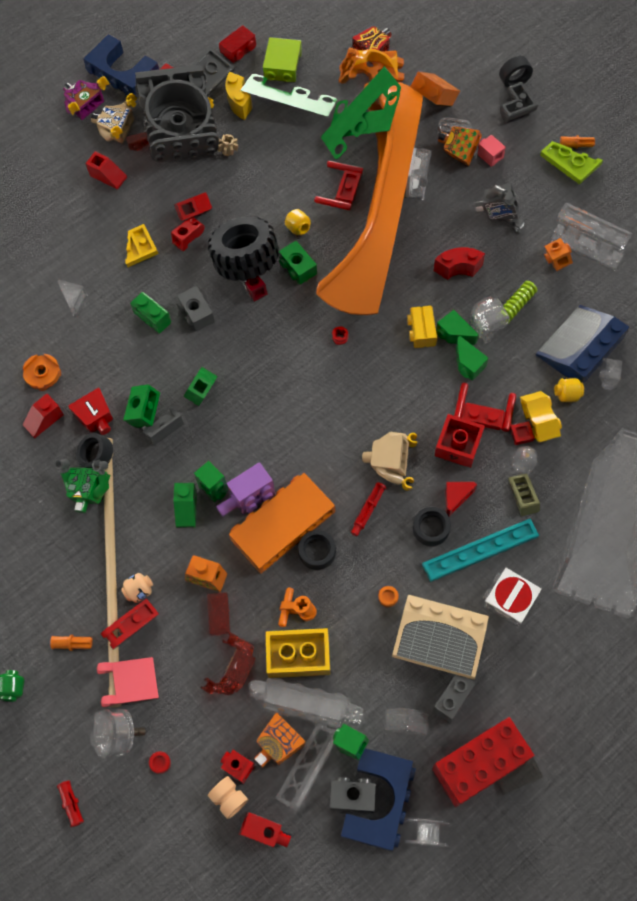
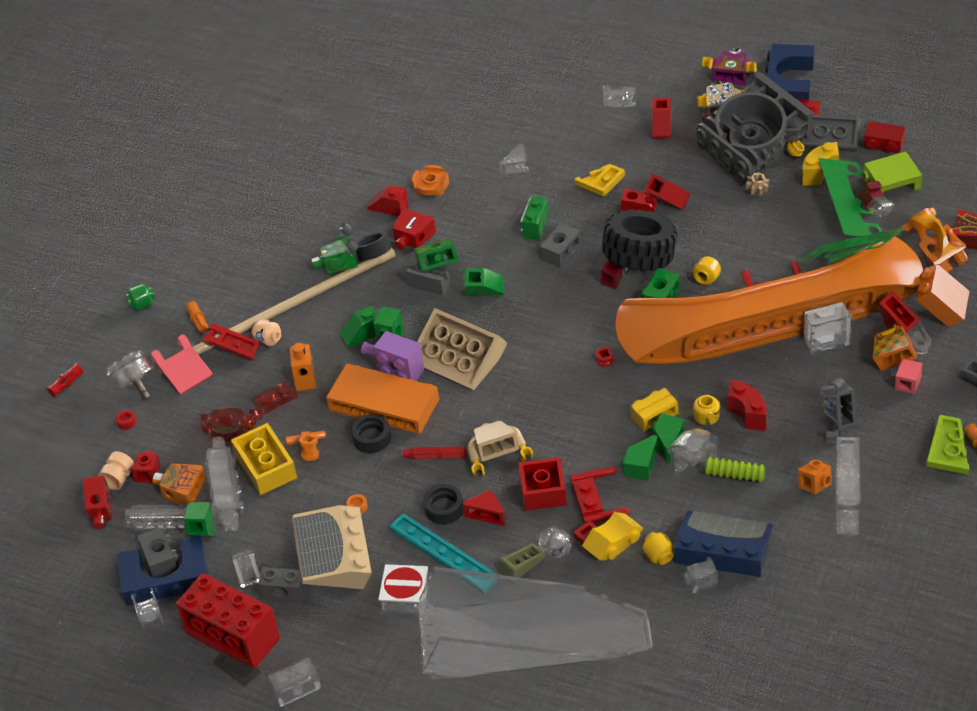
camera: 65 degrees right, 20 degrees down
(52, 189) = (619, 97): none -> clear leg
(265, 437) = (459, 349): none -> tan slope
(303, 82) = (875, 200): none -> leg
(435, 124) = (897, 312): none -> red slope
(449, 291) = (706, 410): none -> yellow head
(568, 732) = (294, 681): none -> clear brick

